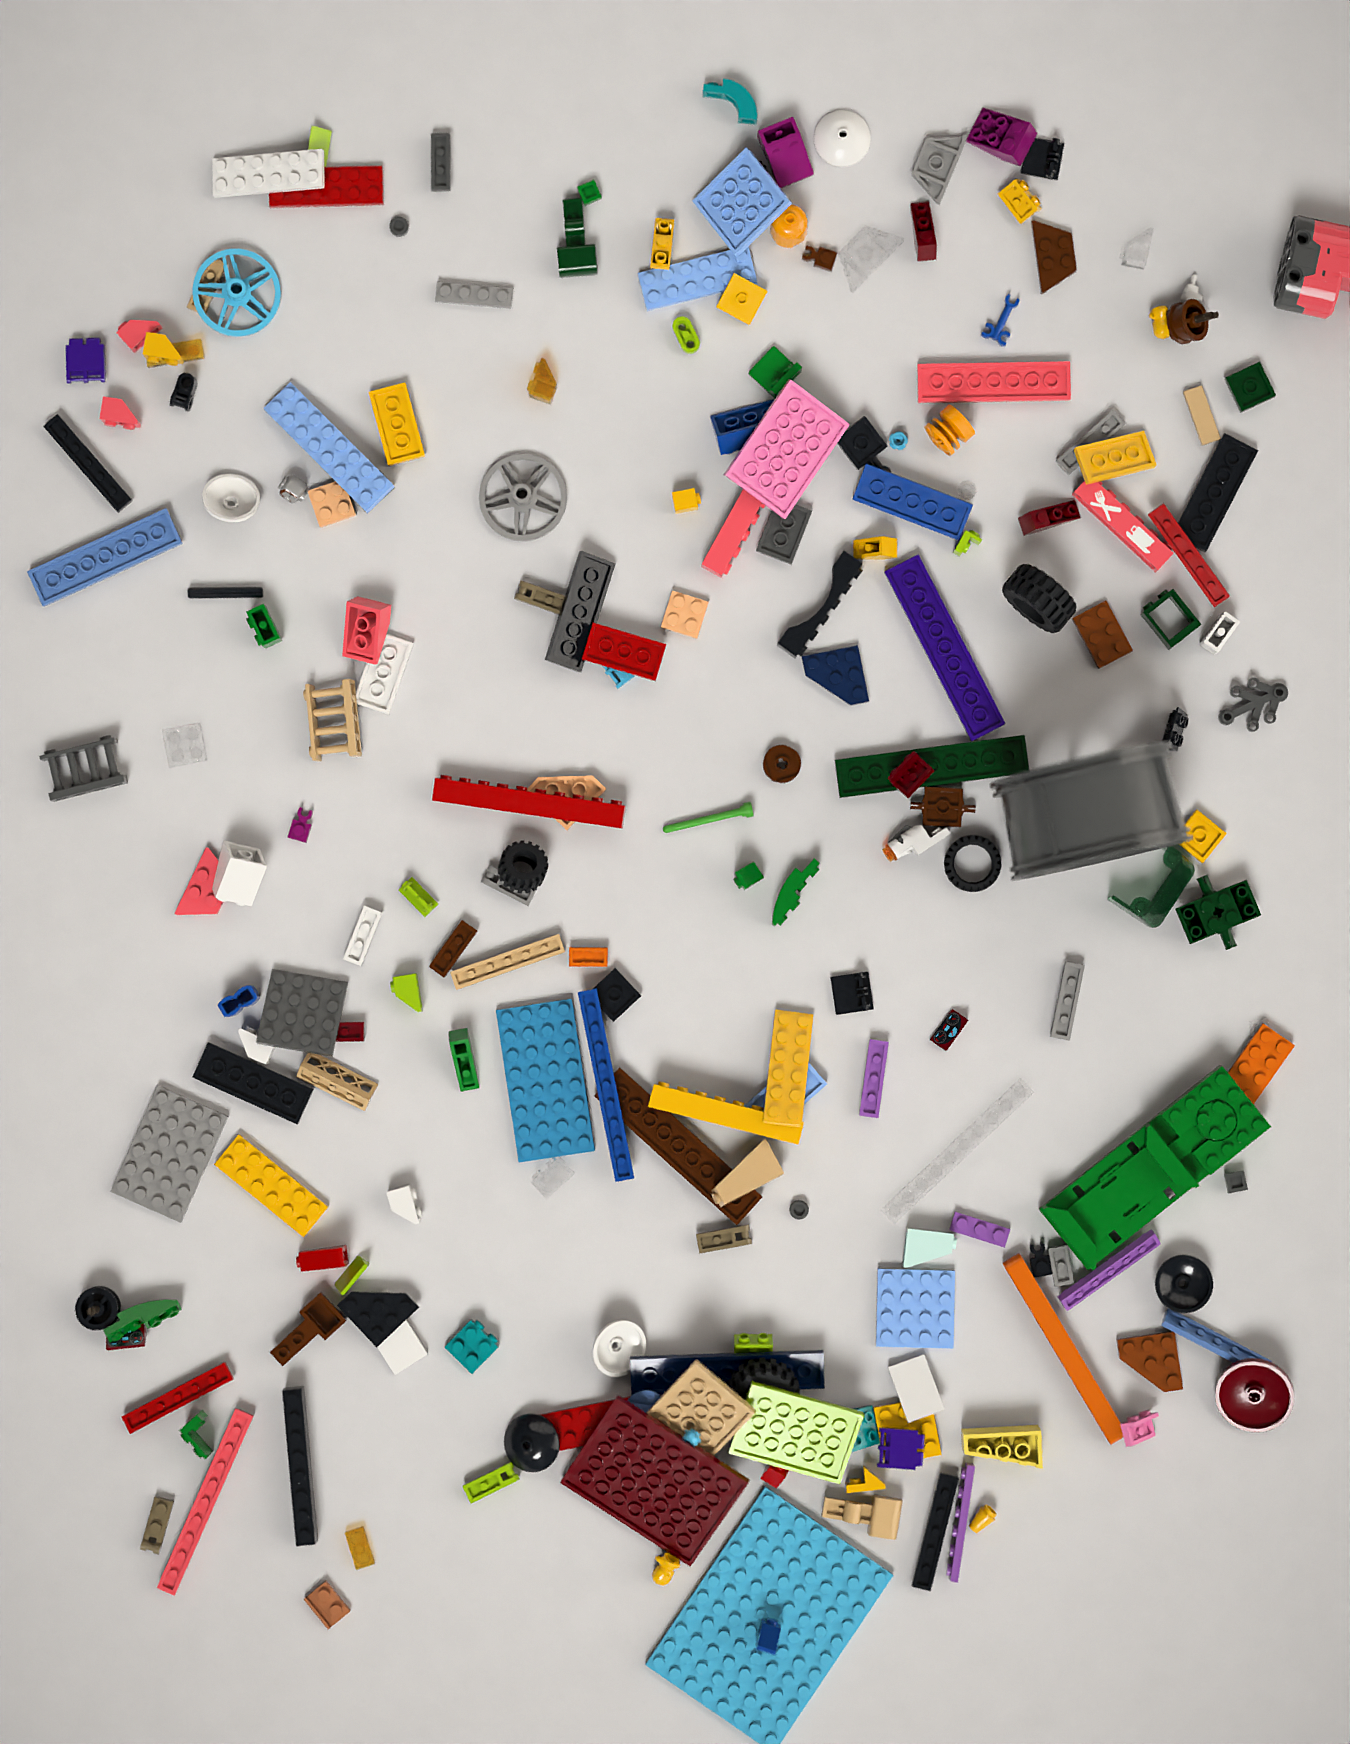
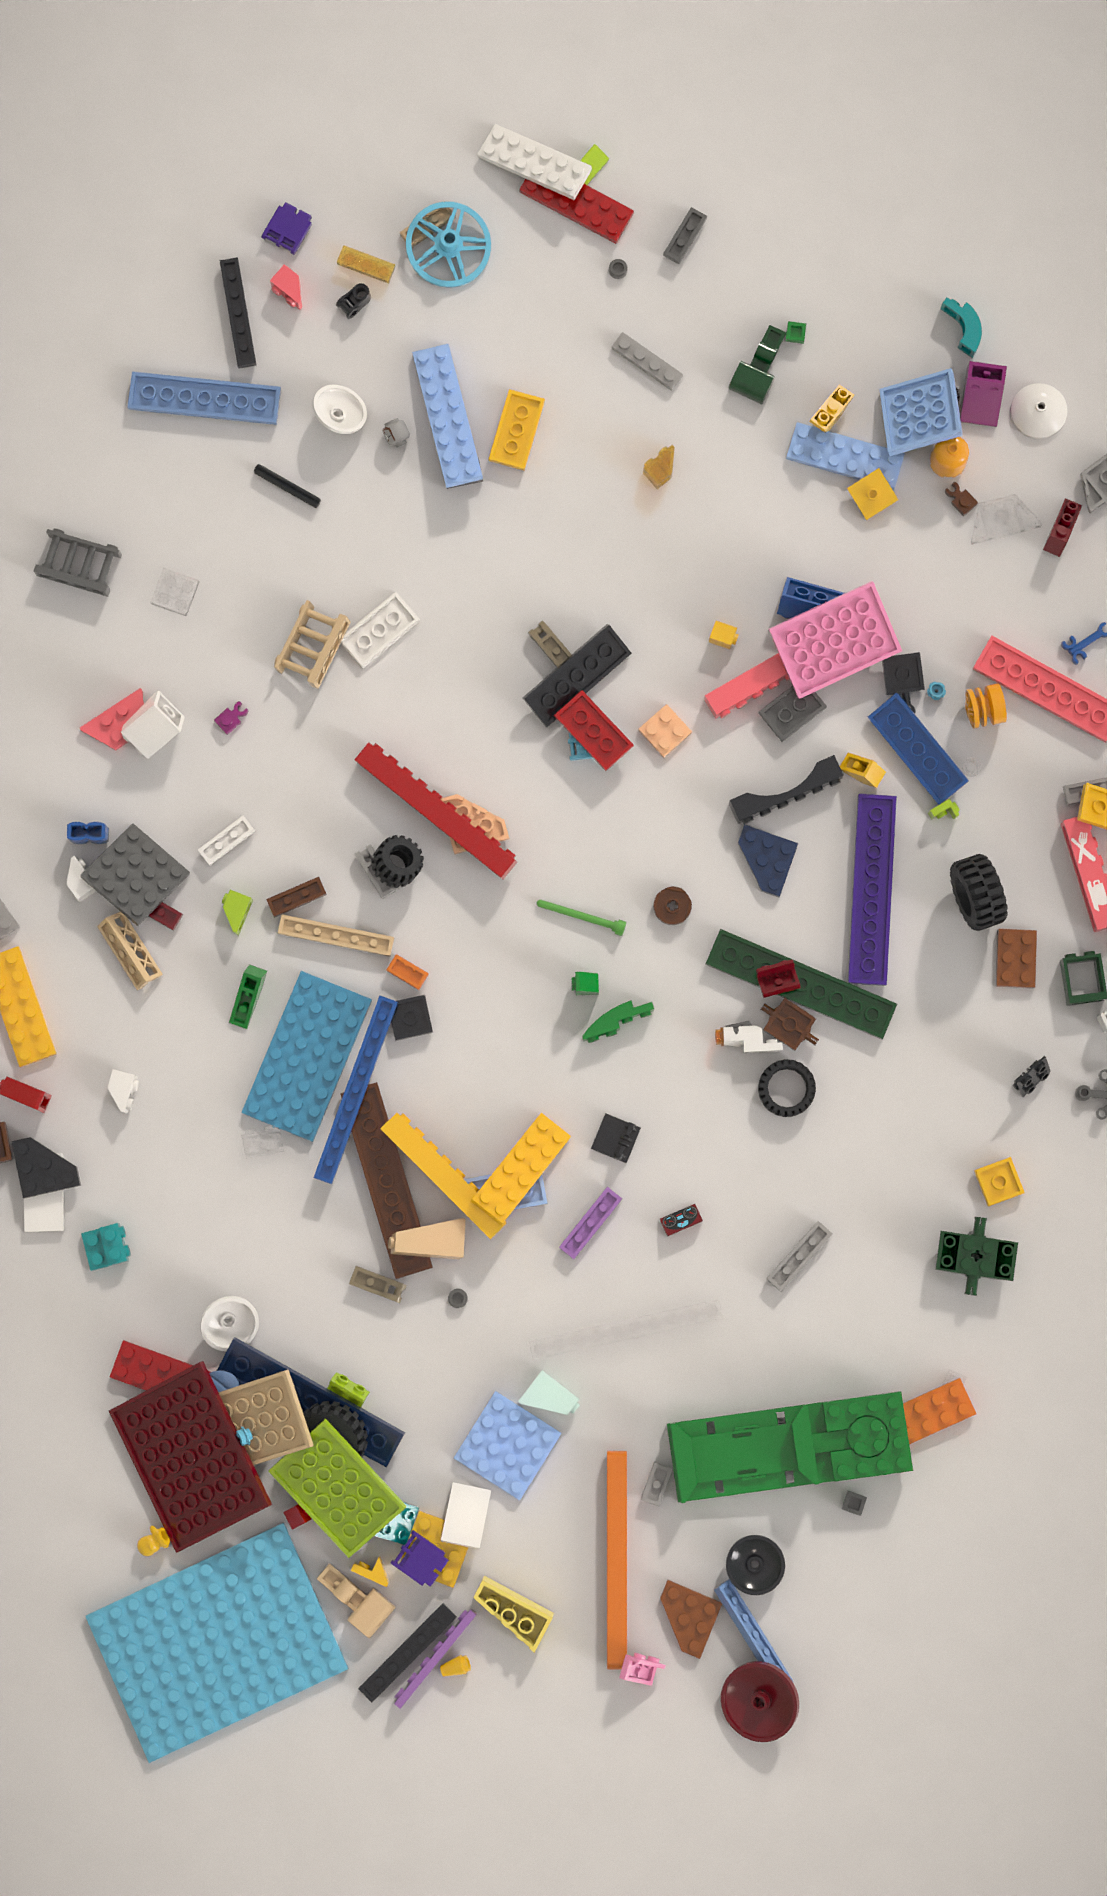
camera: 30 degrees right, 5 degrees down
(134, 332) = (346, 230): coral slope -> none
(159, 348) = (355, 251): yellow slope -> none
(253, 1083) = (57, 910): black plate -> none
(264, 626) = (302, 531): green brick -> none
(331, 504) = (421, 464): light nougat plate -> none
(351, 1274) = (40, 1123): lime slope -> none
(365, 629) = (386, 584): coral slope -> none
(418, 896) = (293, 835): lime hinge -> none
(490, 1482) = (48, 1374): lime plate -> none
(522, 497) = (586, 552): light grey wheel -> none
(540, 1435) = (115, 1363): black dish -> none
(686, 335) = (807, 498): lime plate -> none
(768, 1636) = (206, 1654): blue slope -> none
(774, 371) = (863, 569): green bracket -> none
(979, 1229) = (604, 1410): medium lavender plate -> none
(1040, 1264) = (640, 1472): black plate -> none
(1048, 517) = (1028, 830): dark red slope -> none
(1091, 810) = (914, 1095): dark grey wheel -> none
(1109, 1270) = (696, 1513): medium lavender plate -> none
(1154, 912) = (921, 1223): clear green windscreen -> none

